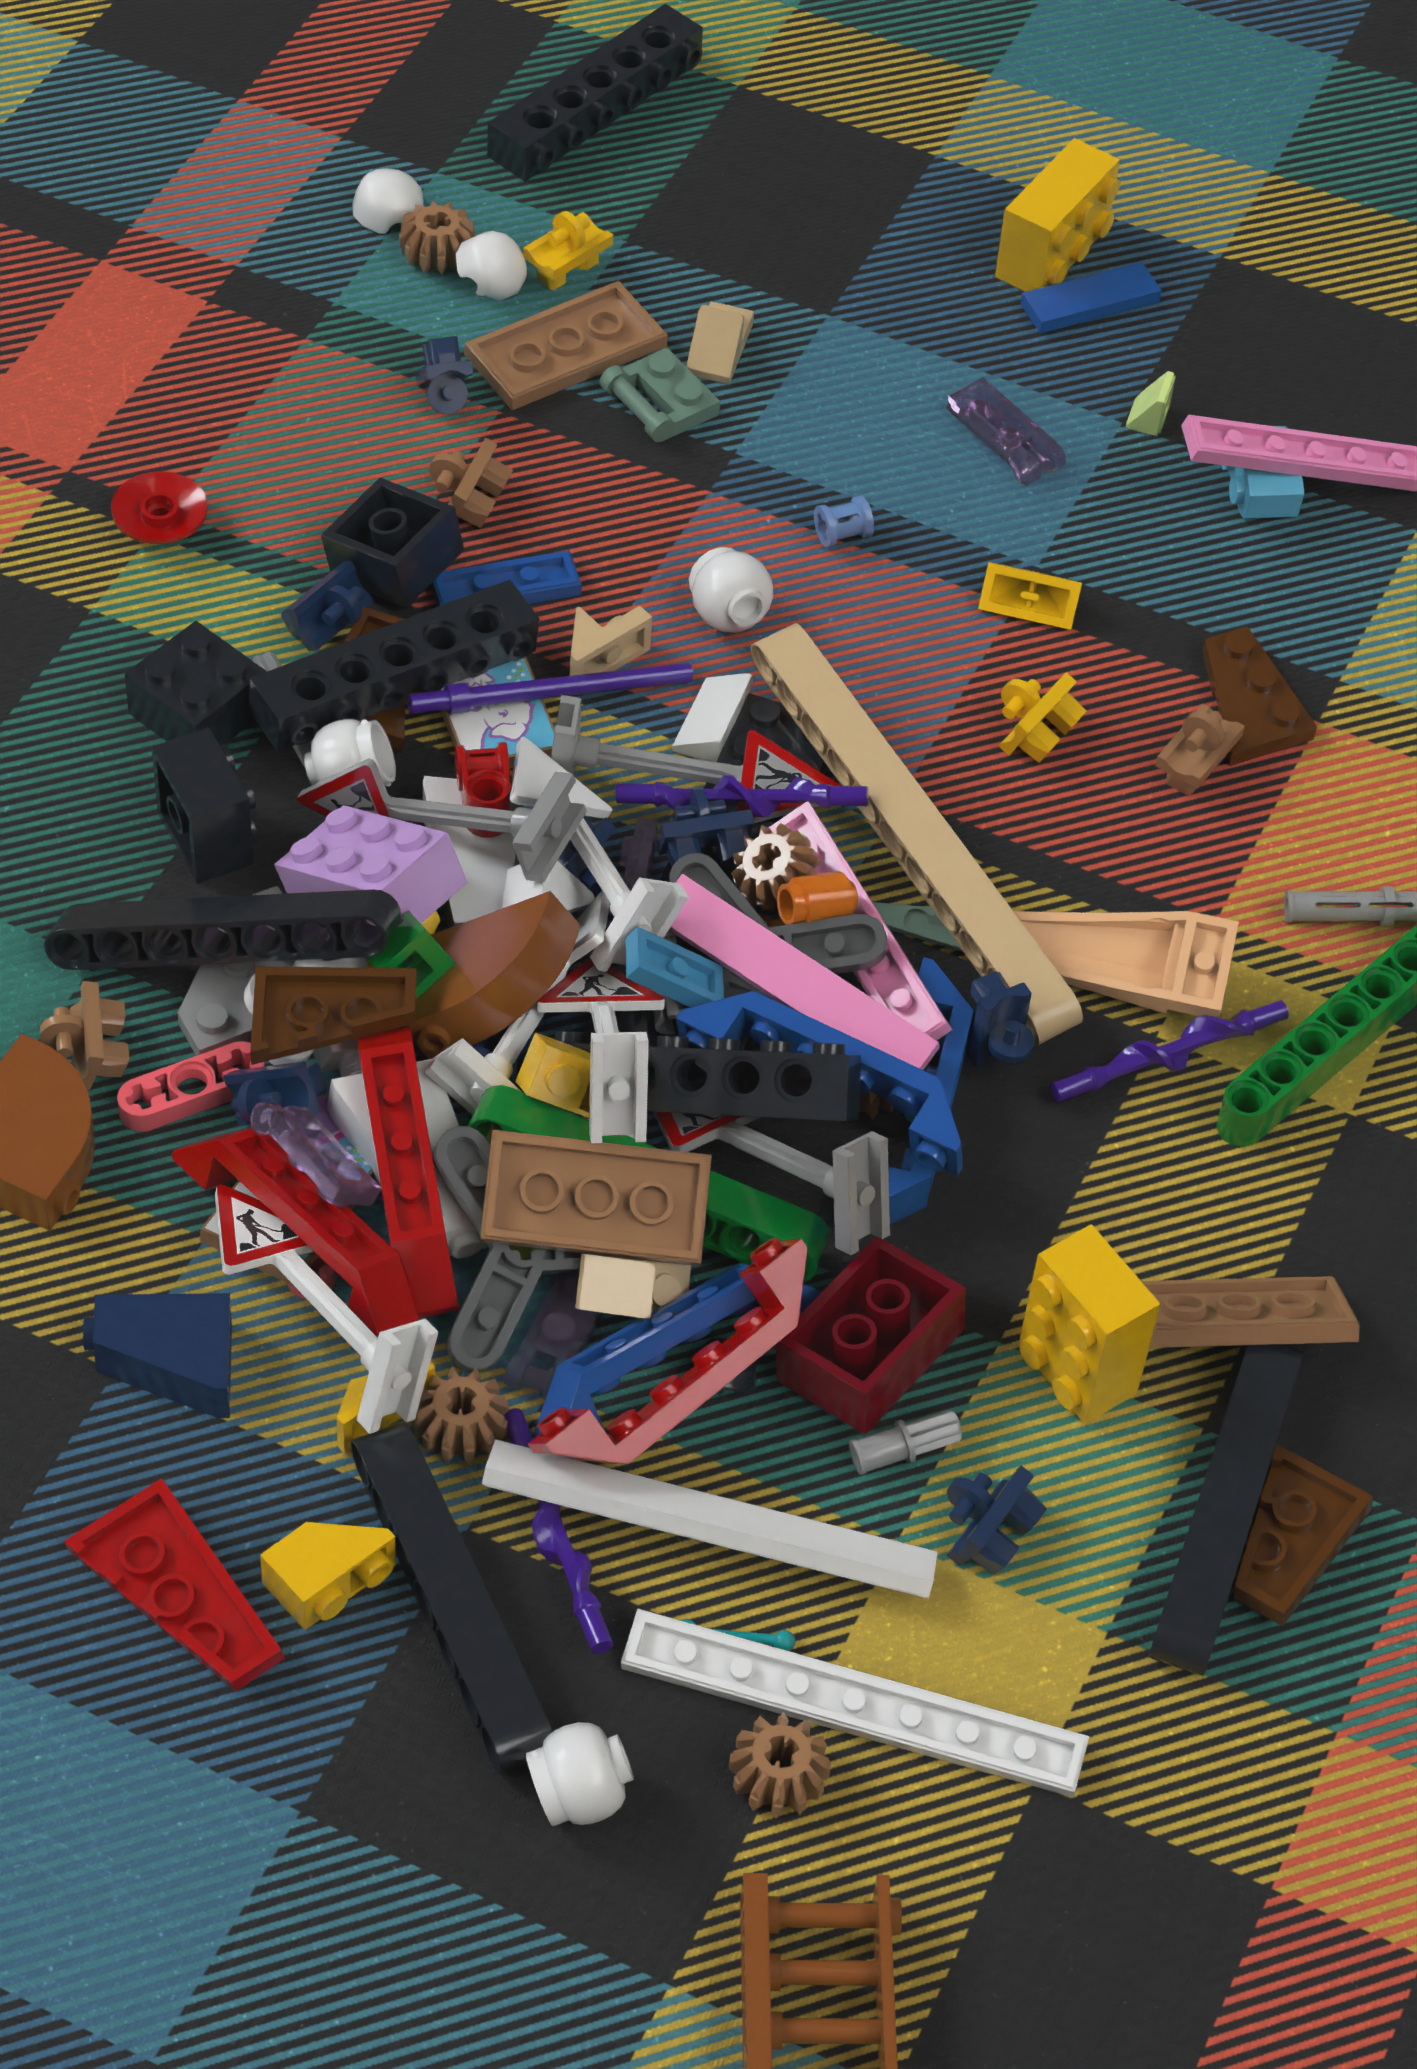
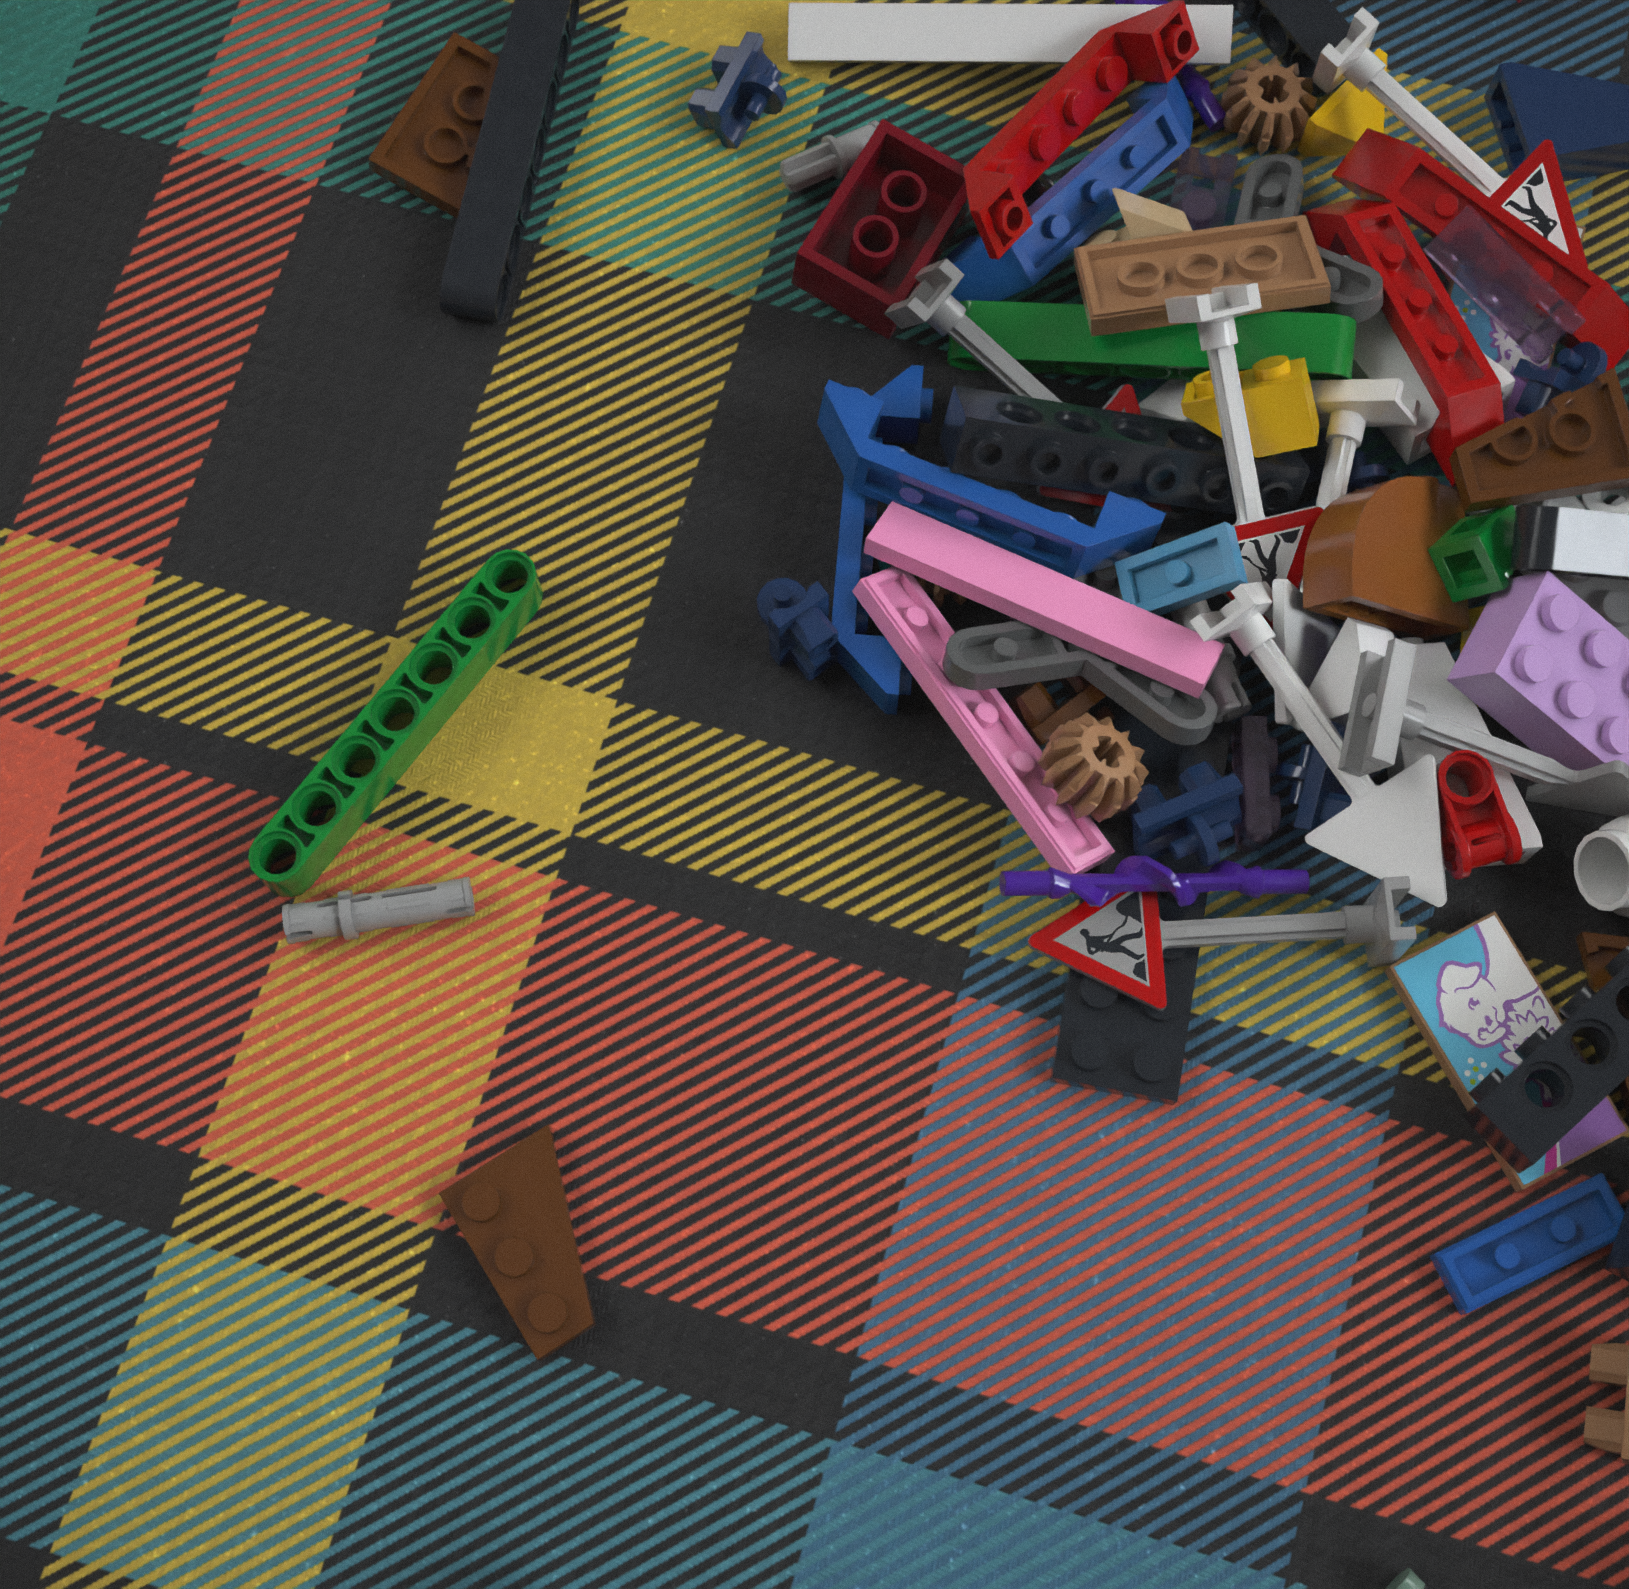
camera: 175 degrees right, 20 degrees up
(460, 697) = (1534, 988): dark purple bar -> none
(609, 647) = (1394, 1126): tan slope -> none
(713, 716) = (1214, 1061): white slope -> none
(730, 589) = (1238, 1252): white piece -> none
(816, 897) = (1036, 703): orange brick -> none
(828, 519) = (1111, 1442): medium blue bush -> none
(913, 828) = (951, 896): tan beam -> none
(1030, 595) = (835, 1367): yellow slope -> none
(1031, 733) = (809, 1134): yellow hips -> none
(1088, 1324) = (666, 234): yellow brick -> none
(1136, 957) = (646, 764): light nougat plate -> none
(1171, 1055) = (601, 650): dark purple piece -> none
(1198, 749) = (590, 1109): medium nougat hips -> none
(1251, 1312) = (508, 332): medium nougat tile -> none

